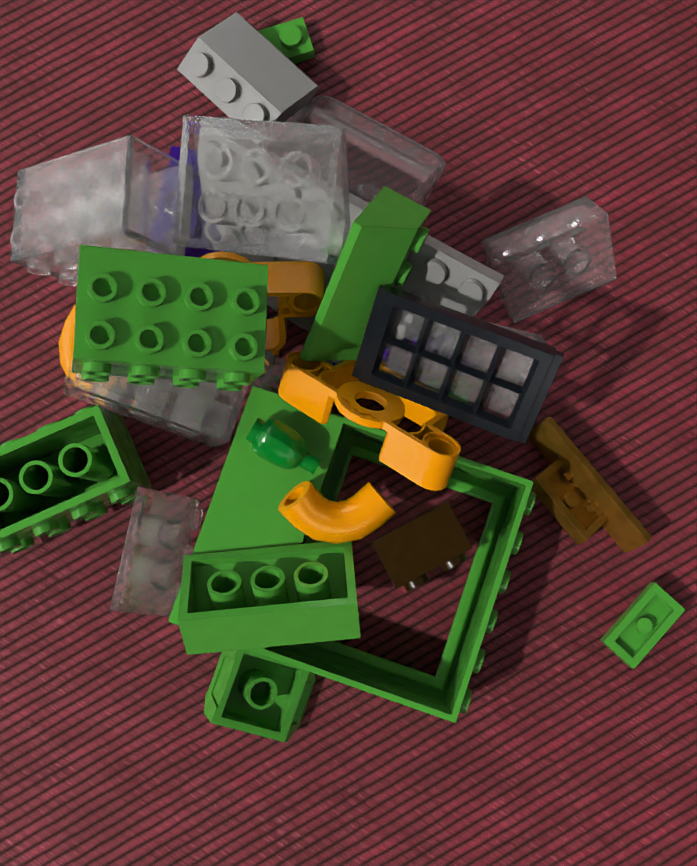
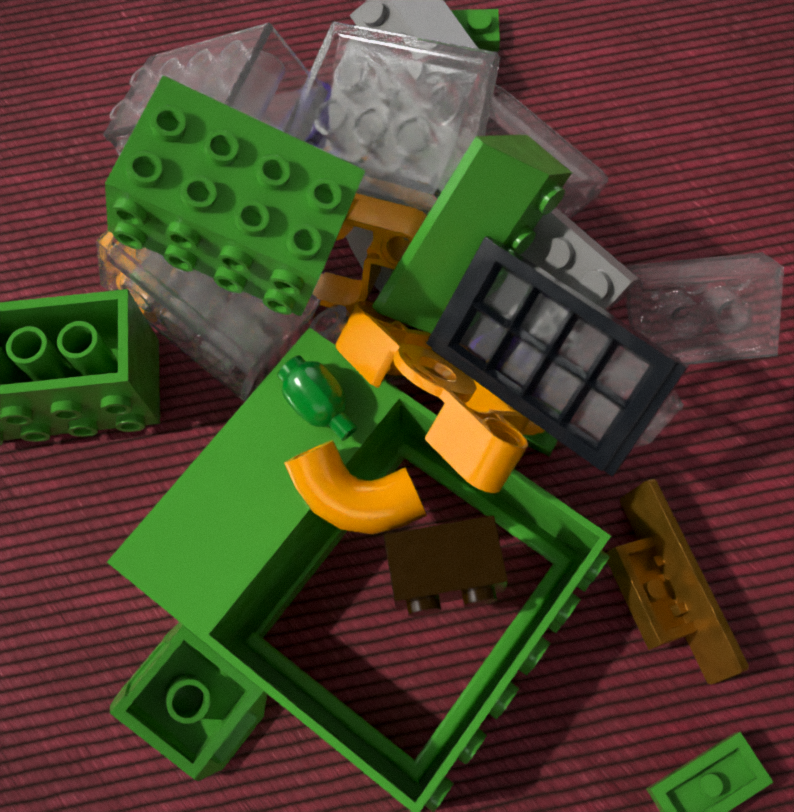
camera: 20 degrees right, 15 degrees down
(155, 552) = (124, 481): clear slope -> none
(268, 597) = (234, 568): bright green slope -> none

